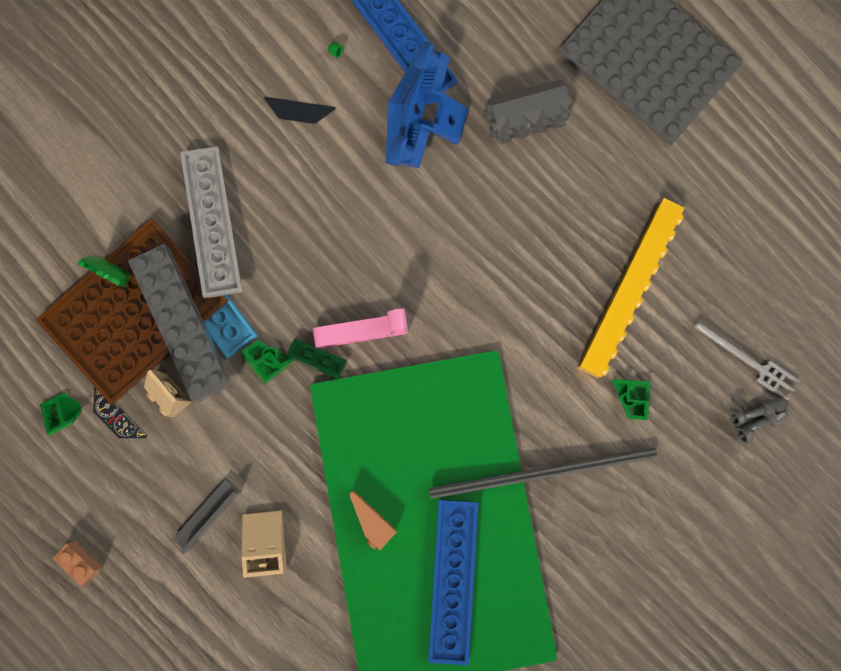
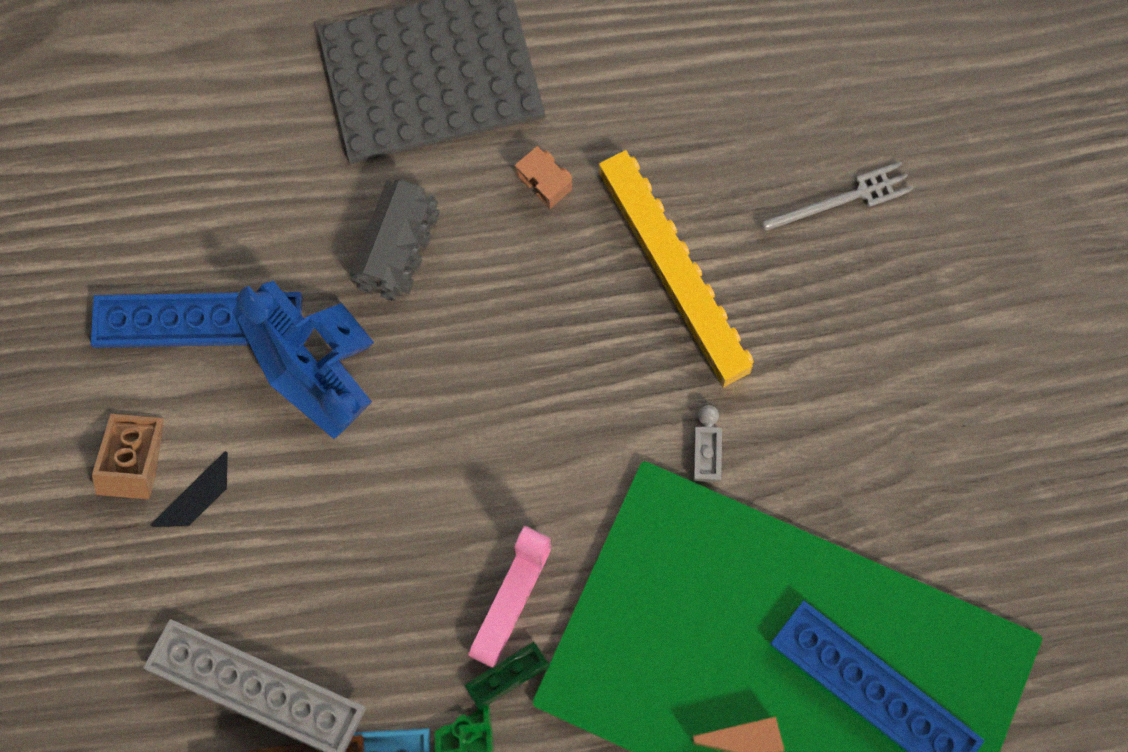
camera: 50 degrees left, 10 degrees down
(292, 54) = (128, 457): none -> medium nougat slope
(335, 49) = (158, 404): green hinge -> none
(533, 383) = (708, 446): none -> light grey plate
(543, 472) = (815, 509): dark grey axle -> none
(633, 166) = (540, 171): none -> nougat brick
(634, 397) = (799, 348): green slope -> none
(766, 409) = (920, 220): dark grey piece -> none

